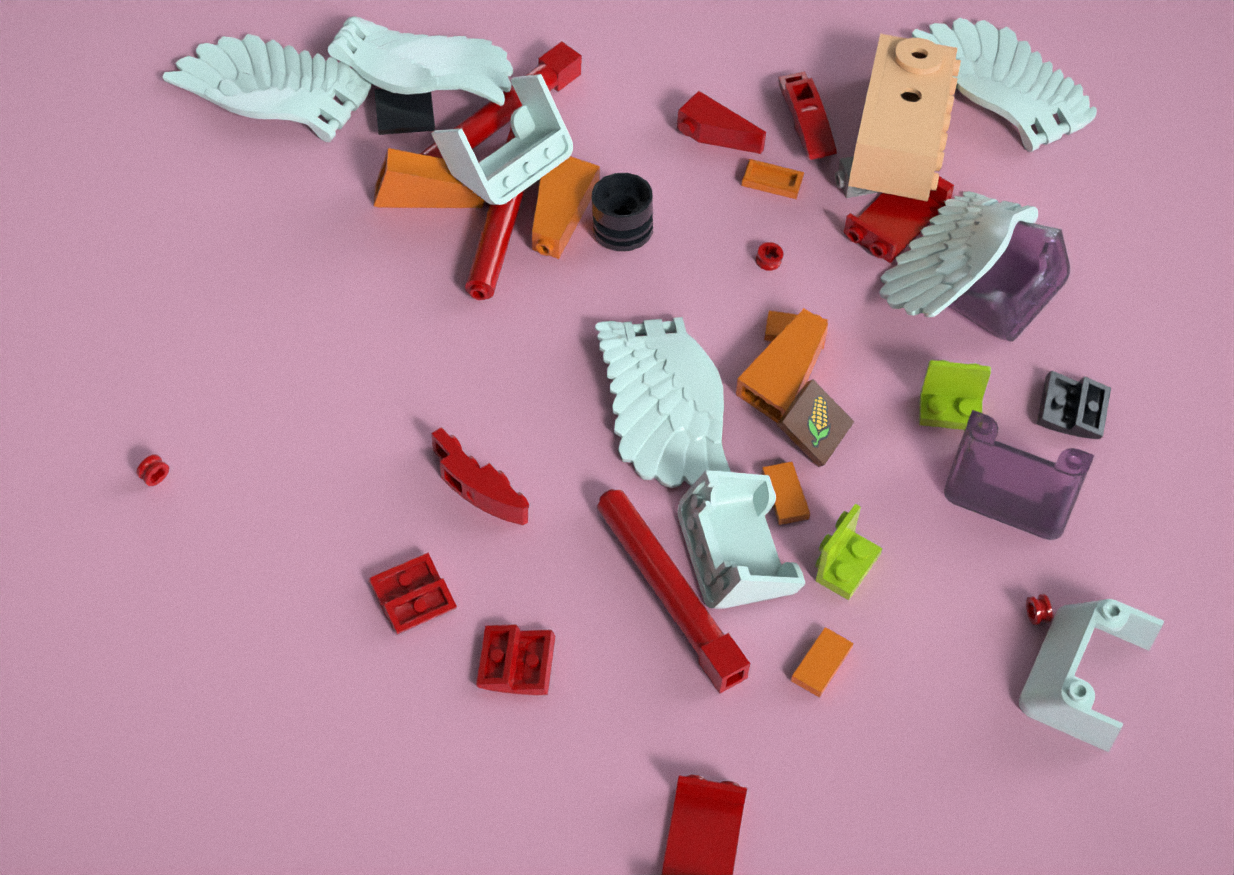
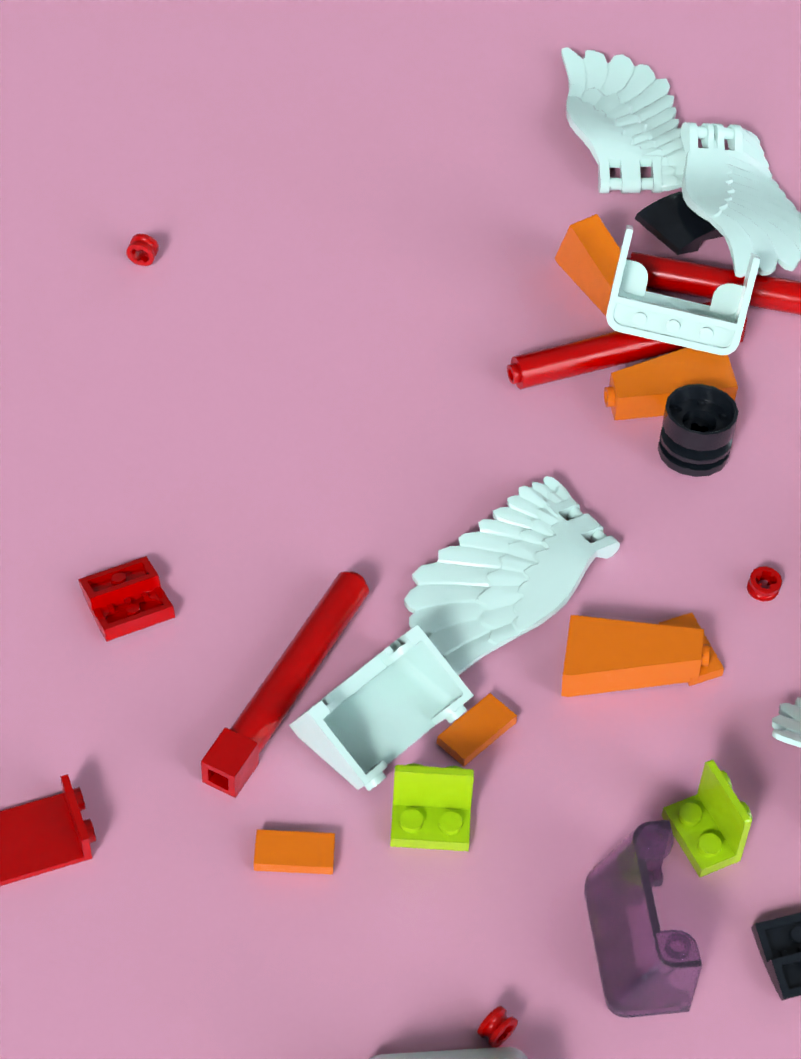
camera: 60 degrees right, 5 degrees down
(412, 593) = (145, 487): red slope -> none
(479, 486) = (298, 471): red slope -> none
(815, 423) = (575, 710): reddish brown tile -> none

